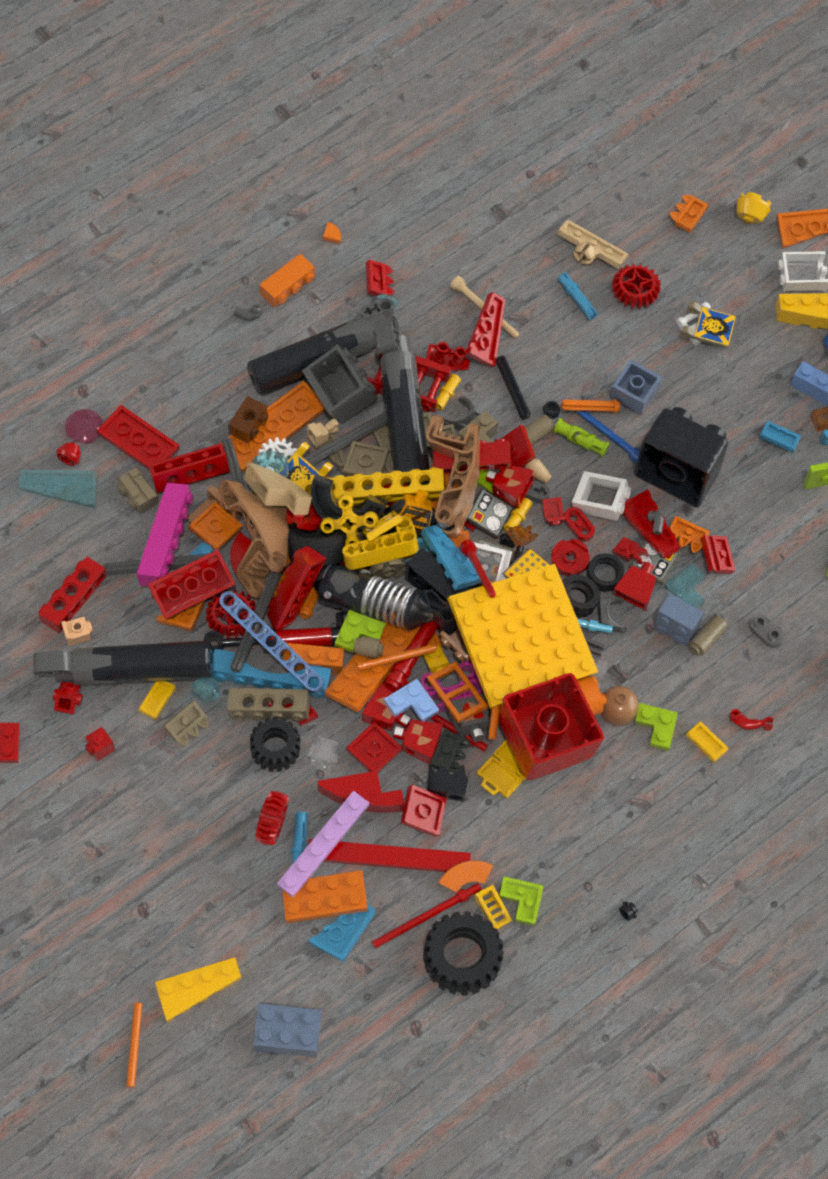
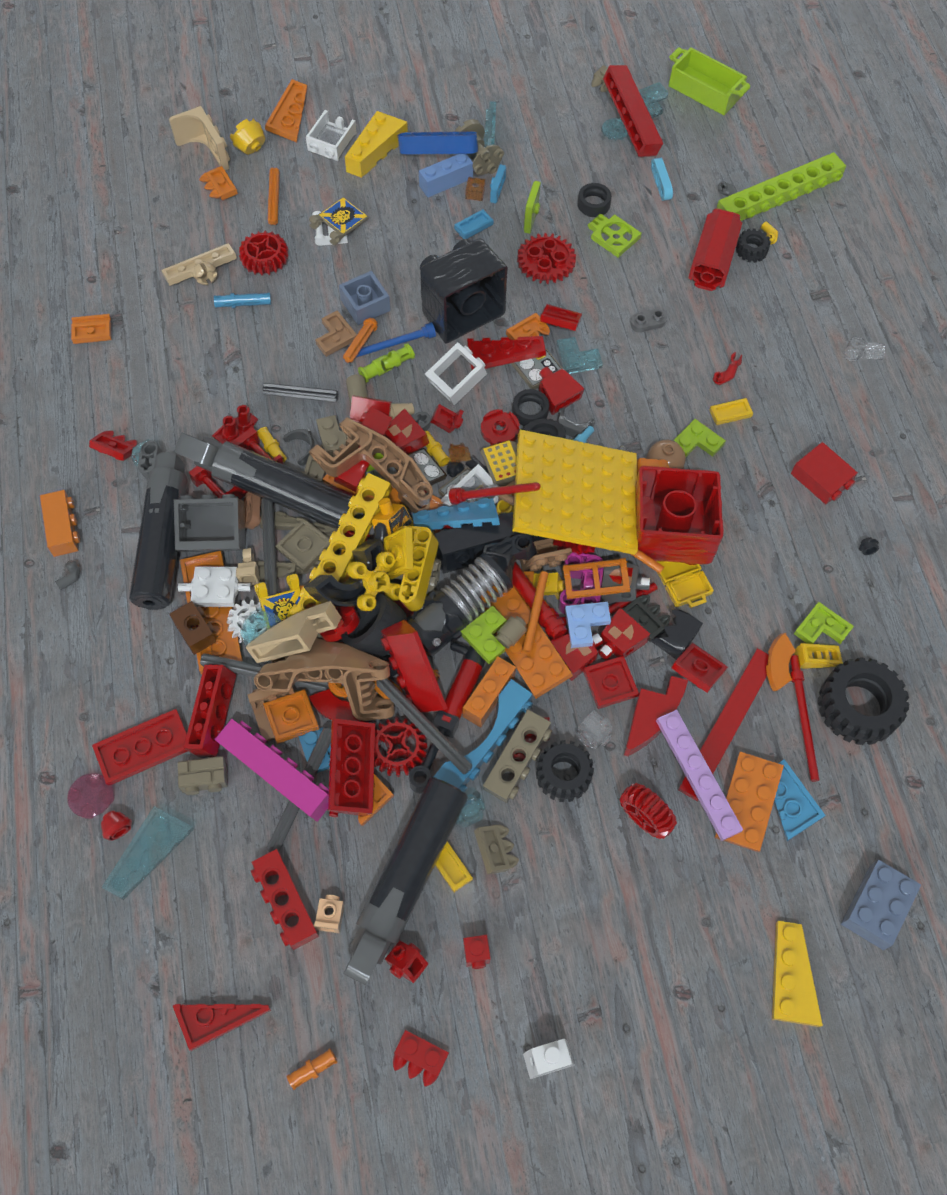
camera: 60 degrees left, 0 degrees up
(44, 827) = (548, 1058): none -> white torso
(134, 1044) = (835, 1074): orange bar -> none
(263, 637) = (451, 717): medium blue beam -> none
(291, 416) = (214, 587): none -> white plate
(300, 831) = (674, 796): dark azure pin -> none
(332, 233) = (35, 461): orange tile -> none
(372, 410) = (252, 510): none -> nougat plate
(459, 285) = (168, 383): tan piece -> none
(478, 201) = (91, 328): none -> orange plate
(486, 335) = (241, 387): red wing -> none
(551, 405) = (342, 369): black plate -> none
(581, 524) = (470, 405): red plate -> none
(587, 388) = (339, 334): none -> medium nougat plate
(629, 549) = (518, 380): red plate -> none
(658, 521) = (509, 339): dark grey arm -> none
(678, 620) = (612, 372): sand blue brick -> none
(683, 844) = (824, 473): none -> red brick
(706, 261) = (273, 197): none -> orange axle
(707, 635) = (633, 361): dark tan brick -> none
(736, 162) = (198, 127): none -> tan bracket
(763, 505) = (546, 258): none -> red gear

